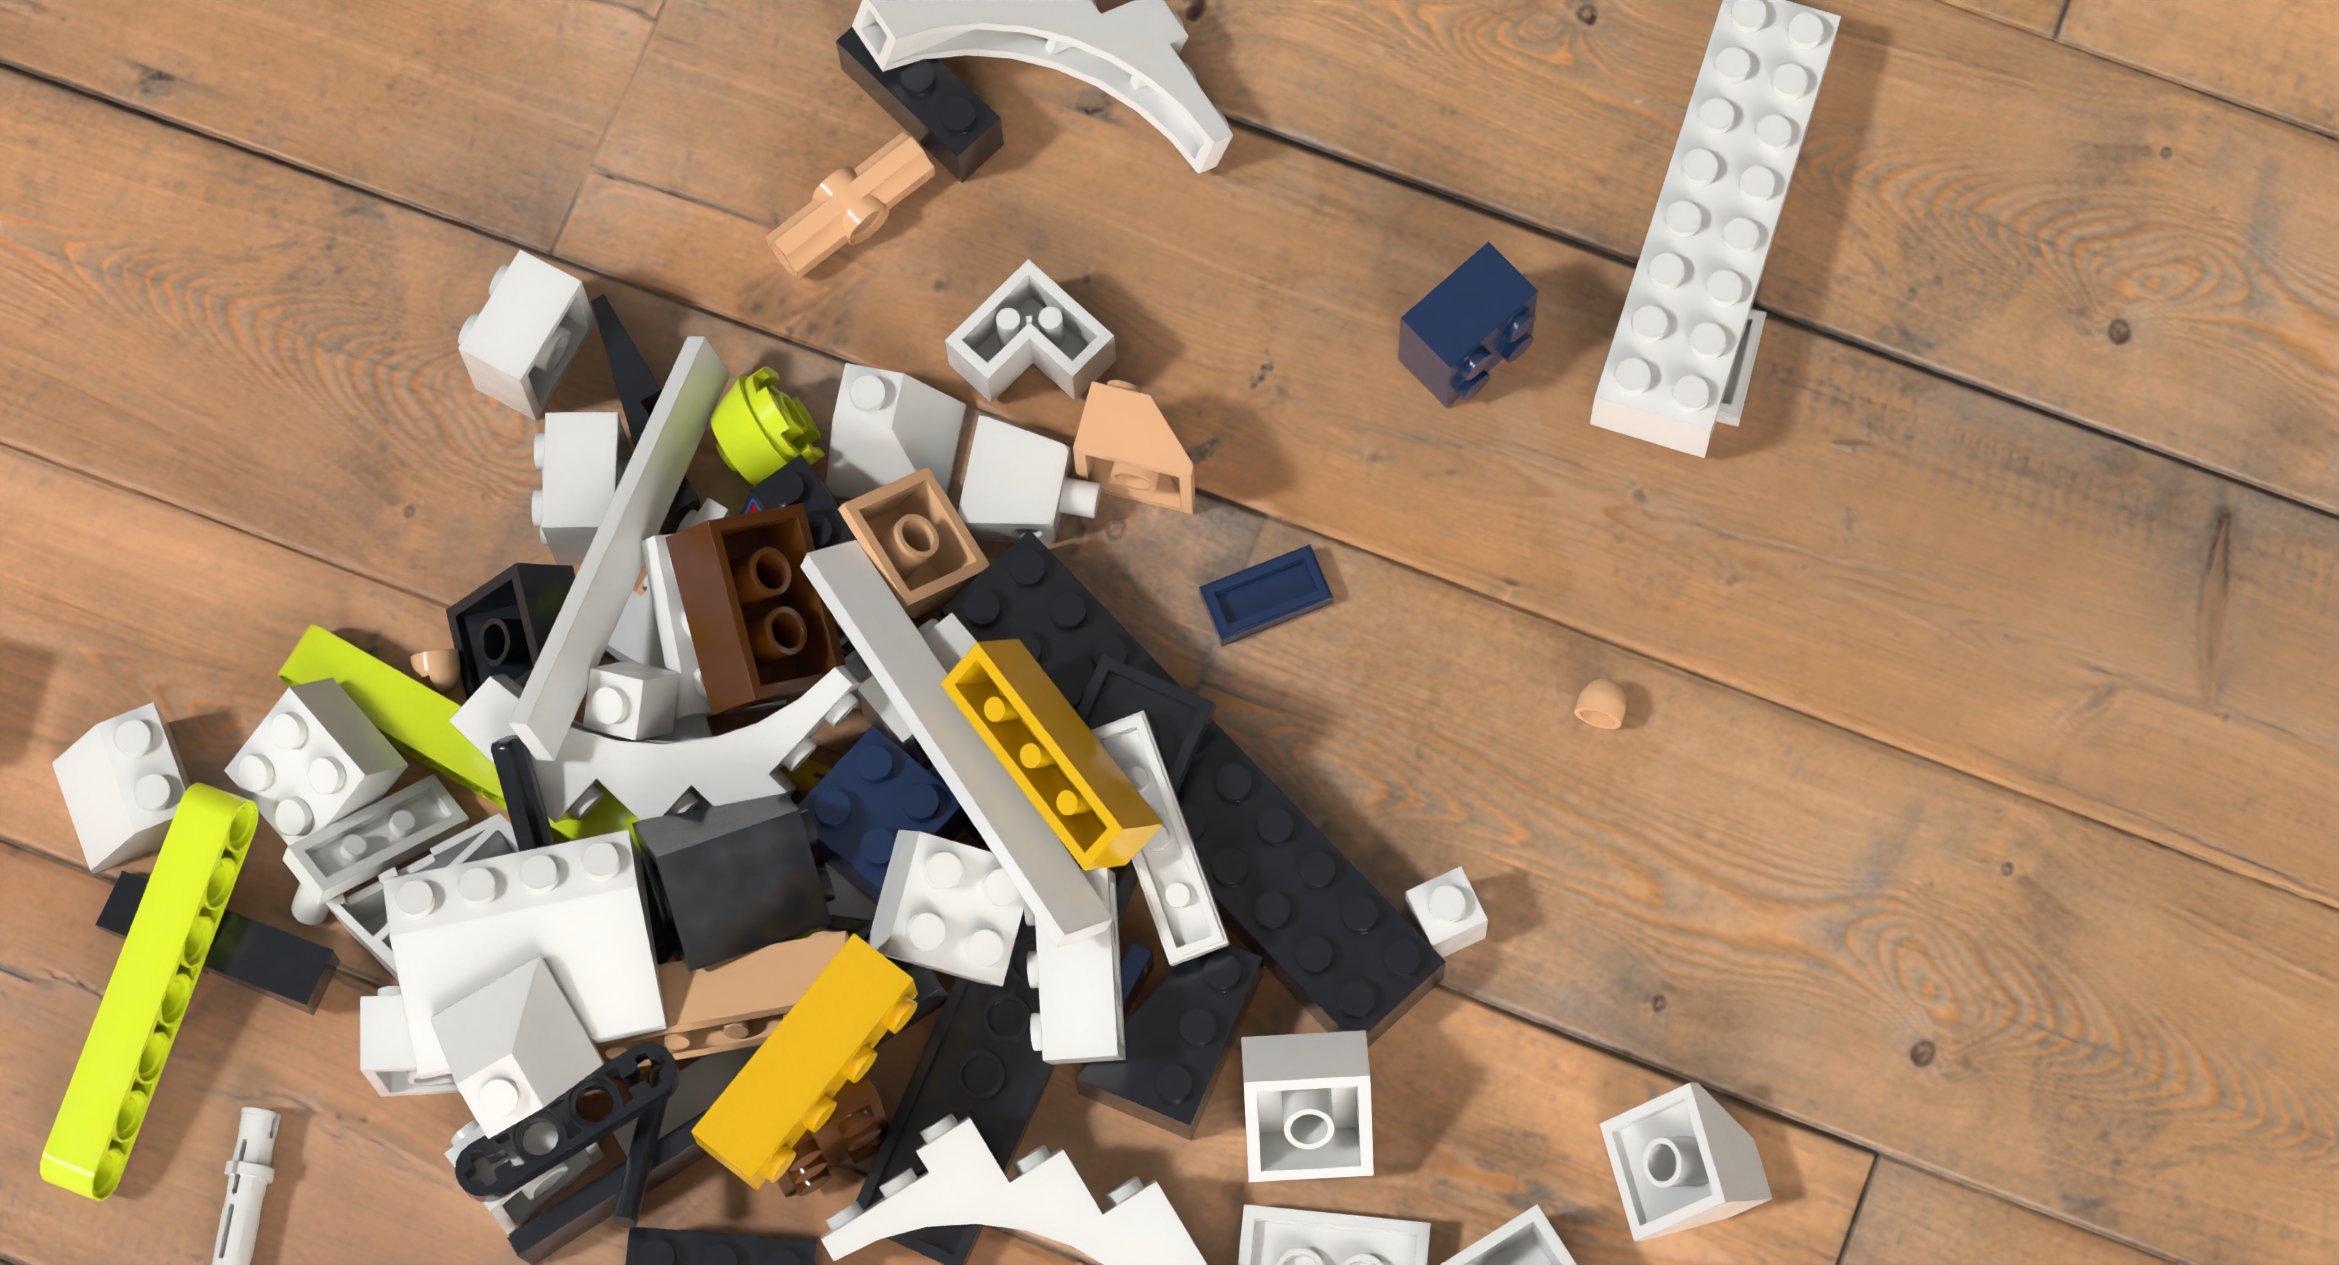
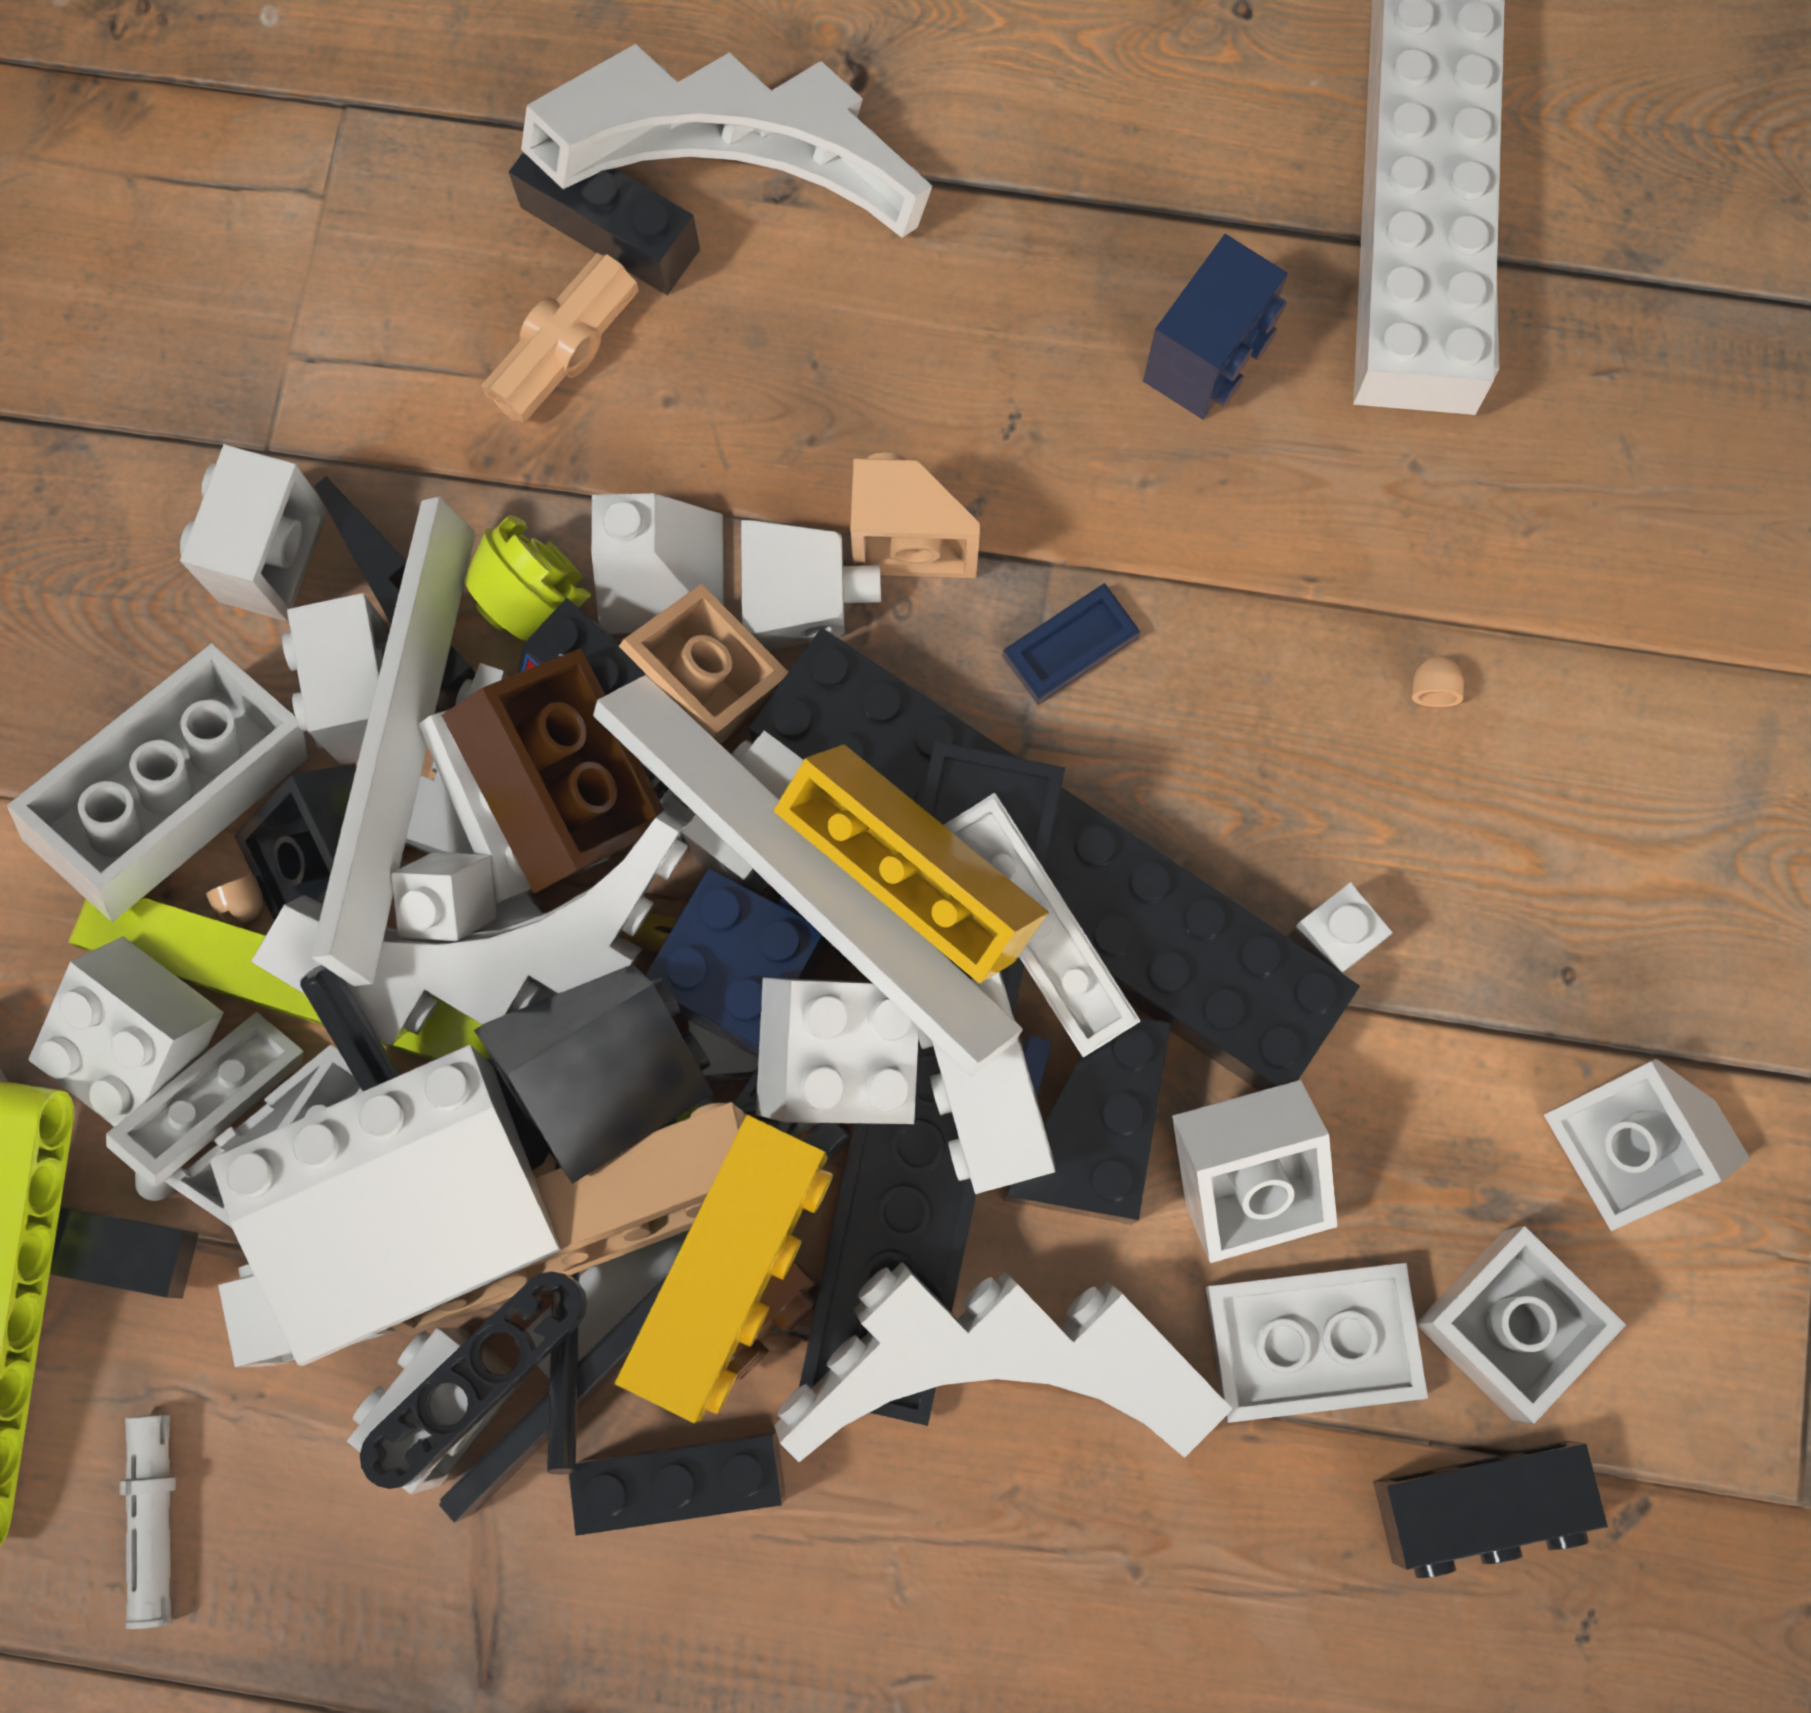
camera: 15 degrees left, 5 degrees up
(396, 545) = (159, 782): none -> white brick
(514, 1046) = (395, 1317): white slope -> none
(1028, 324) = (770, 418): white brick -> none

